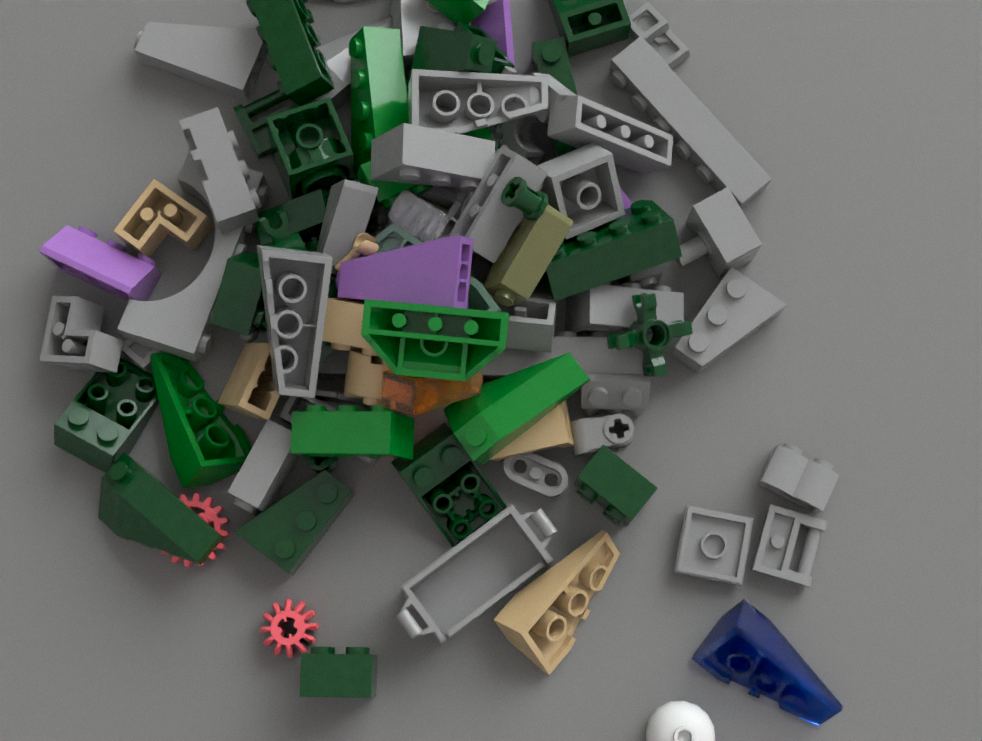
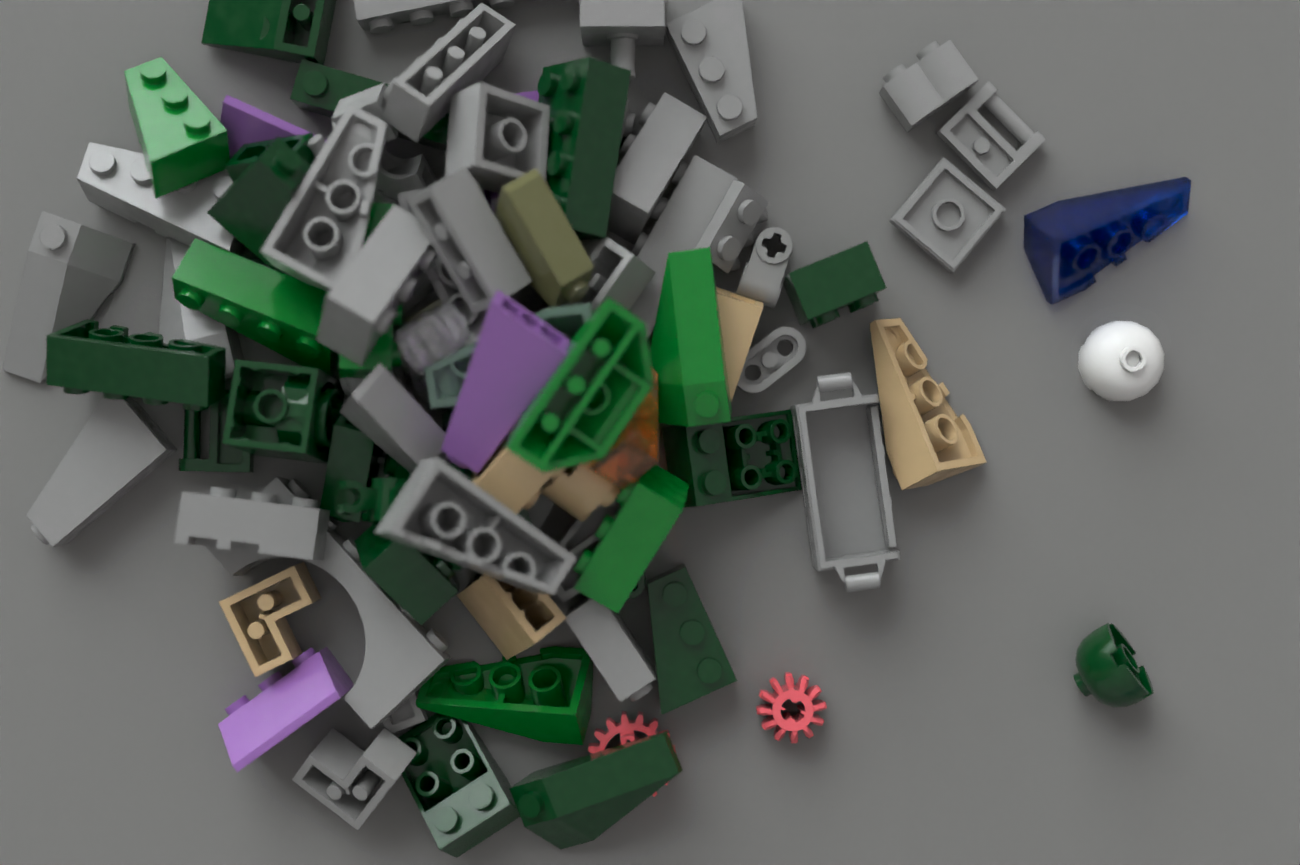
camera: 60 degrees left, 10 degrees up
(338, 674) = (871, 682): dark green brick -> none
(362, 244) = (432, 414): tan hand -> none
(524, 198) = (478, 212): dark green bush -> none
(653, 360) = (707, 147): dark green pin -> none

